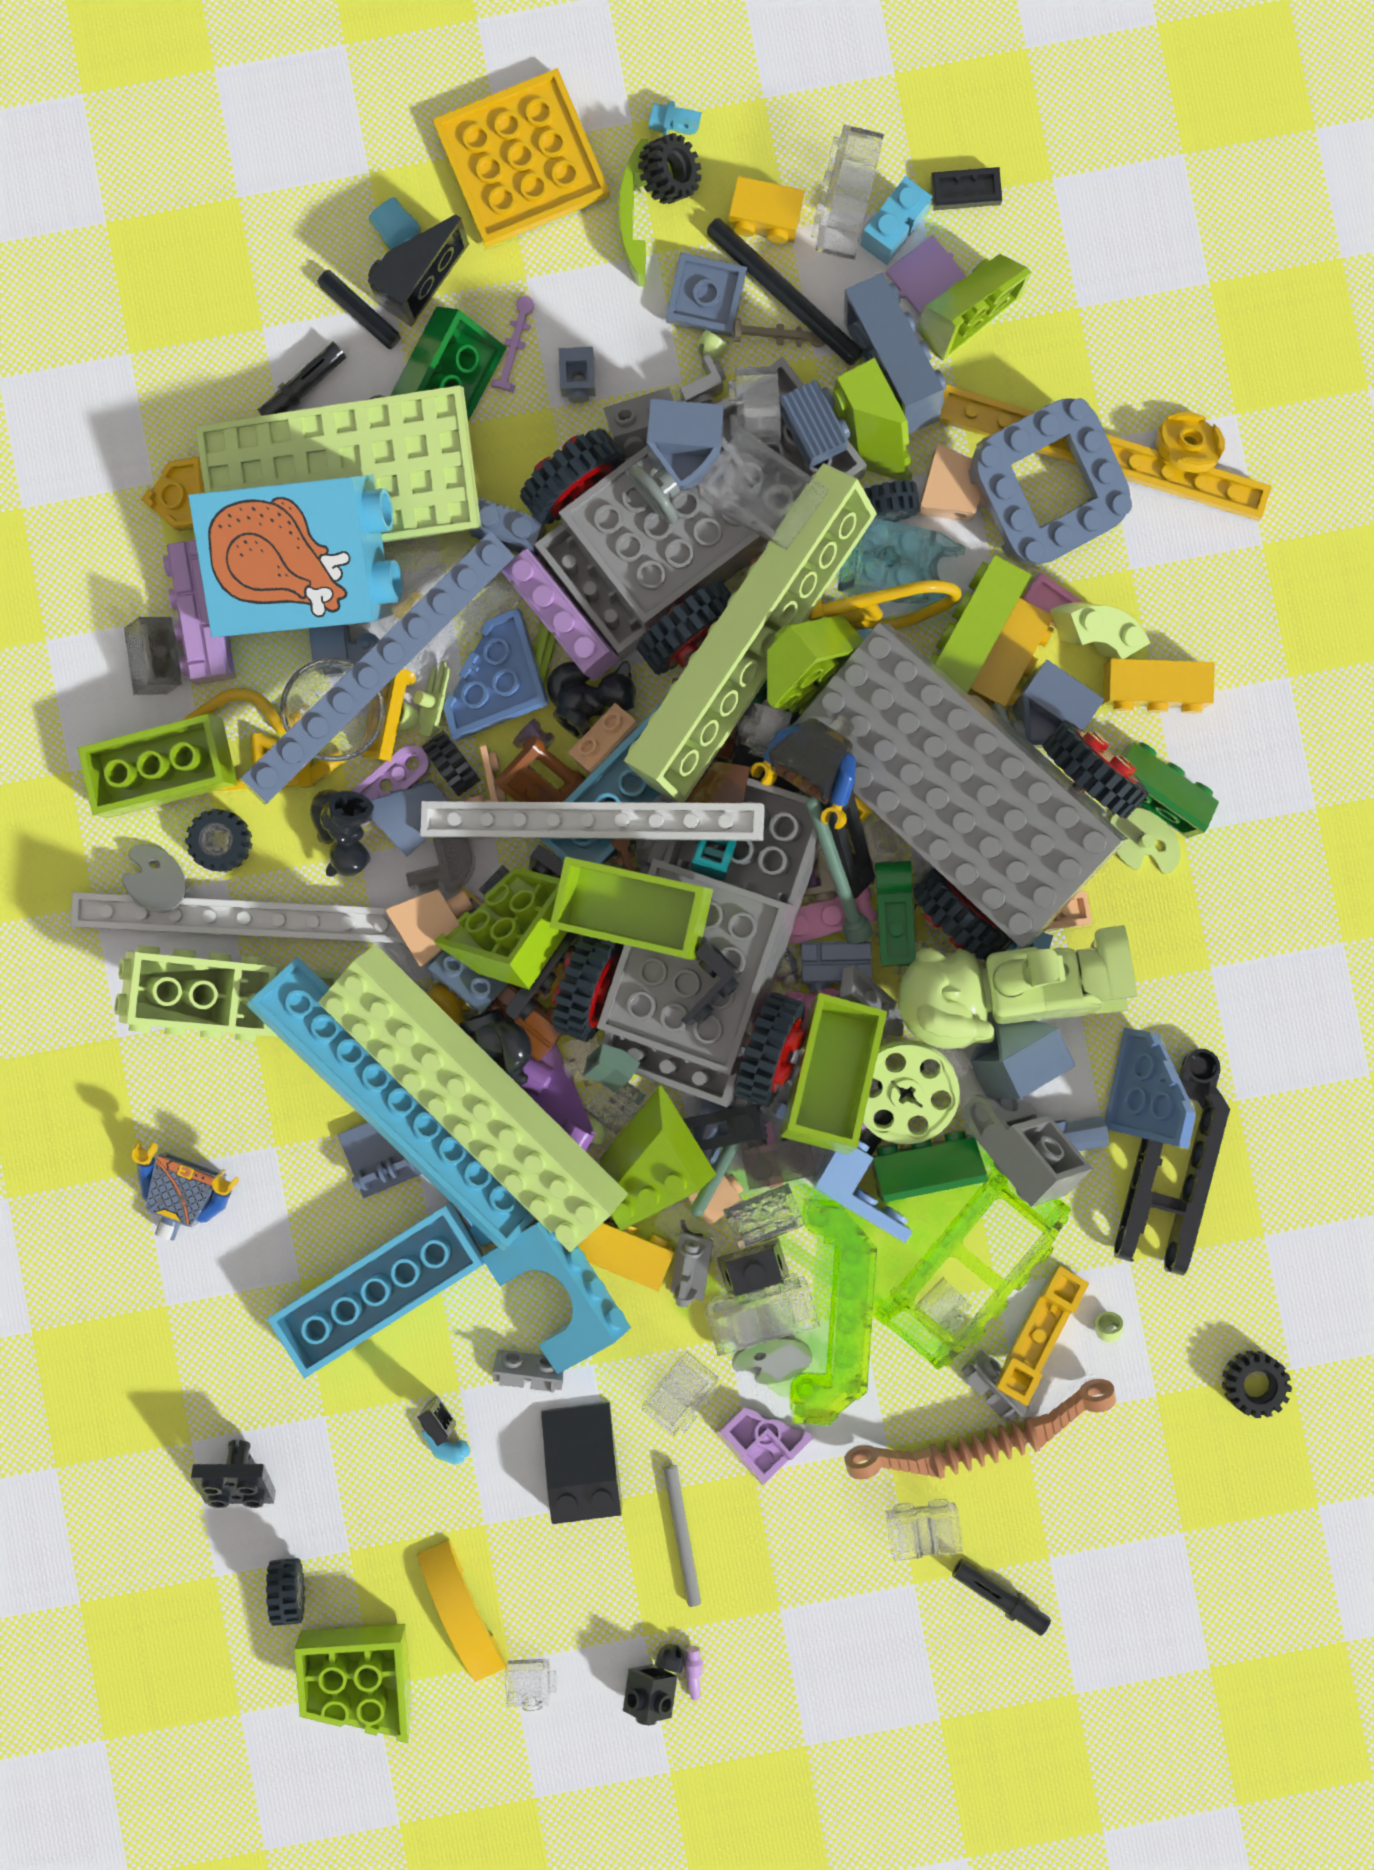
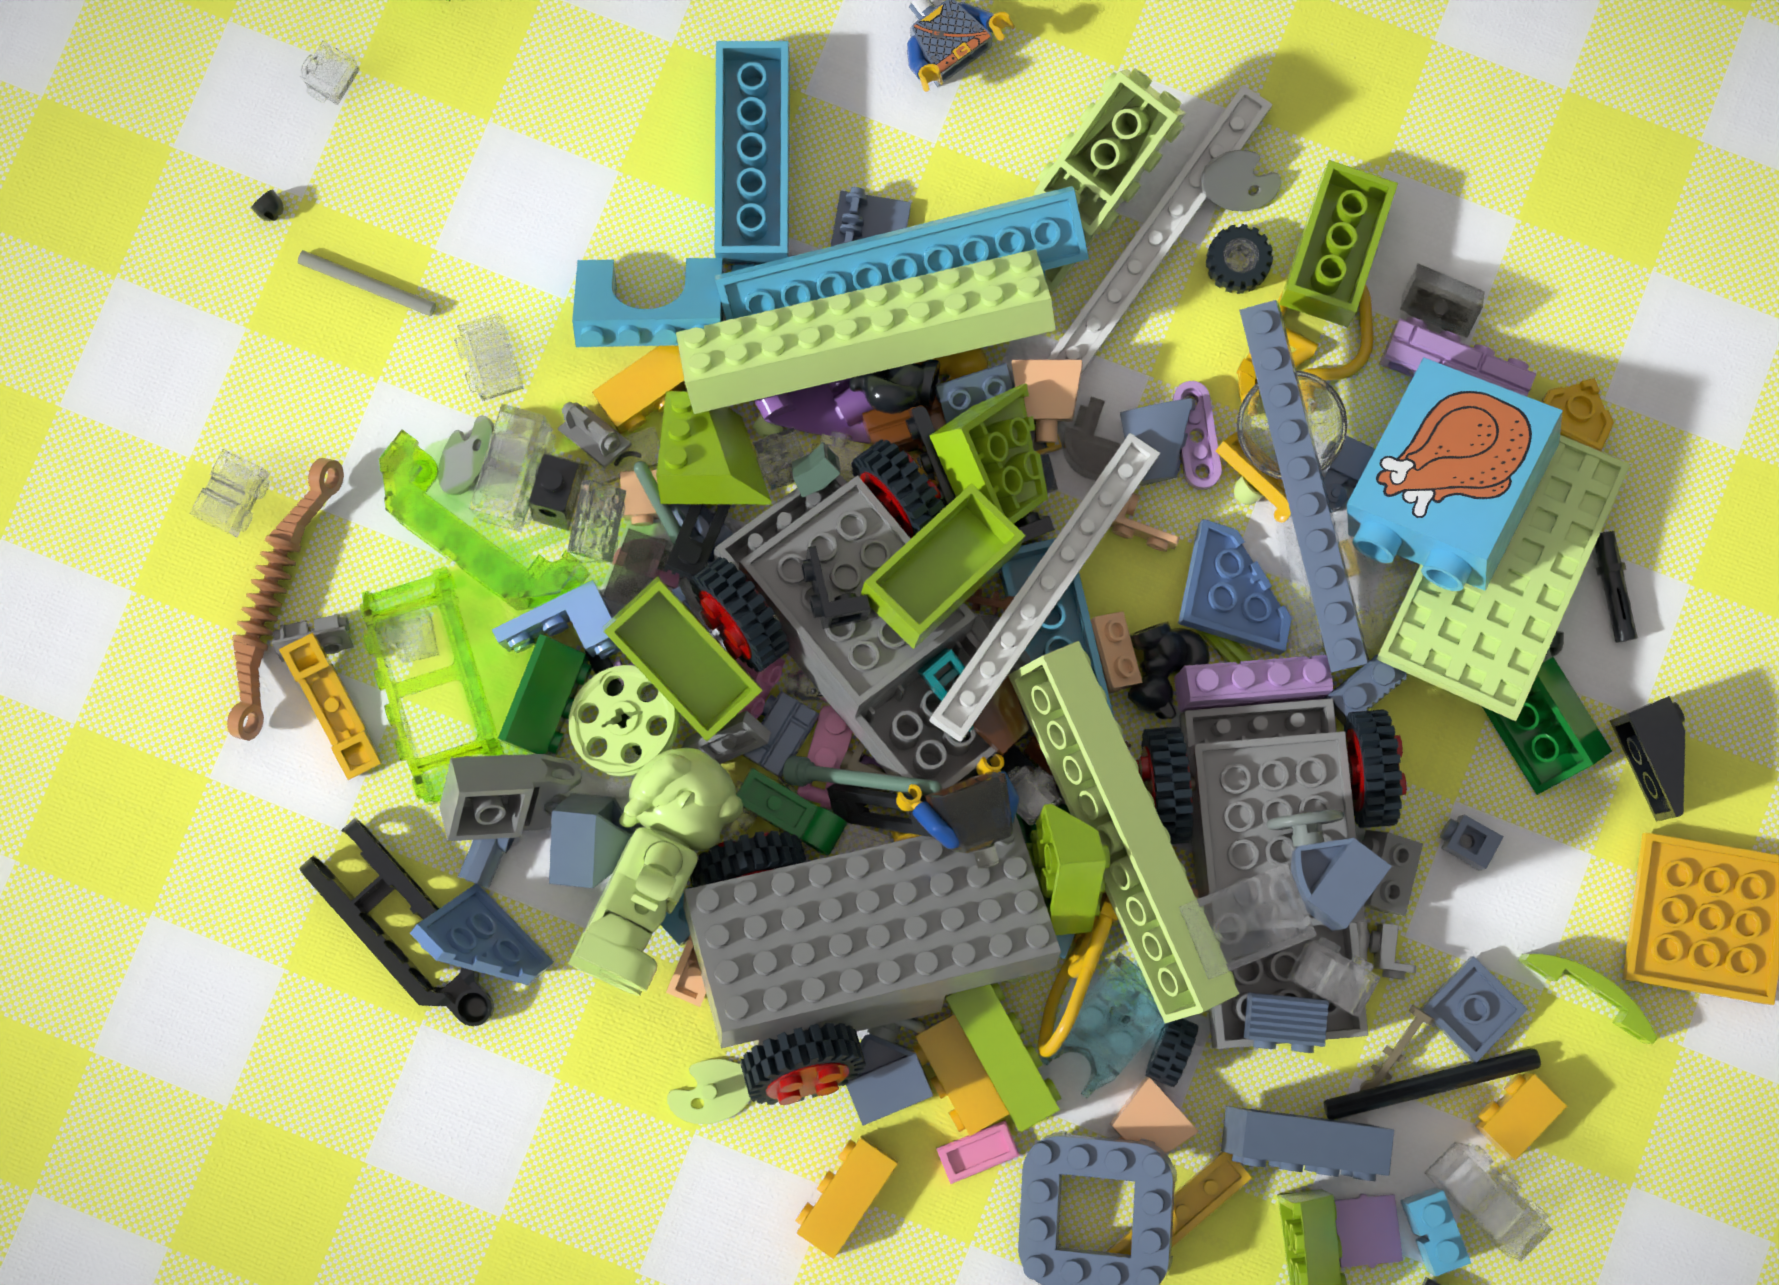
camera: 120 degrees right, 5 degrees down
(339, 819) = (1188, 372): black animal -> none
(359, 309) = (1654, 681): black axle -> none
(394, 223) = (1713, 763): medium azure piece -> none
(432, 701) = (1248, 524): yellowish green piece -> none
(437, 1420) = (605, 132): black plate -> none
(448, 1451) = (576, 125): medium azure arm -> none
(450, 763) = (1179, 502): black tyre -> none
(459, 1612) = (429, 51): yellow slope -> none
(513, 1368) = (605, 229): light grey hinge -> none
(525, 307) = (1564, 836): lavender piece -> none
(527, 785) = (1111, 560): dark orange plate -> none
(533, 728) = (1154, 591): wheel -> none
(581, 1463) = (486, 234): black slope -> none
(649, 1694) = (251, 168): black brick -> none
(656, 172) = (1617, 1031): black tyre -> none
(677, 119) = (1666, 1078): medium azure piece -> none
(693, 1670) = (245, 220): lavender piece -> none
(711, 344) = (1422, 983): yellowish green hinge -> none
(762, 1442) = (400, 402): lavender slope -> none
(874, 420) = (1258, 1079): lime wedge -> none
(1012, 1604) = (115, 530): black pin -> none
(1105, 1324) = (300, 770): yellowish green hinge -> none
(1106, 627) = (938, 1169): yellowish green brick -> none
(1172, 796) = (745, 1138): green slope -> none
(1271, 1398) = (137, 872): black tyre -> none

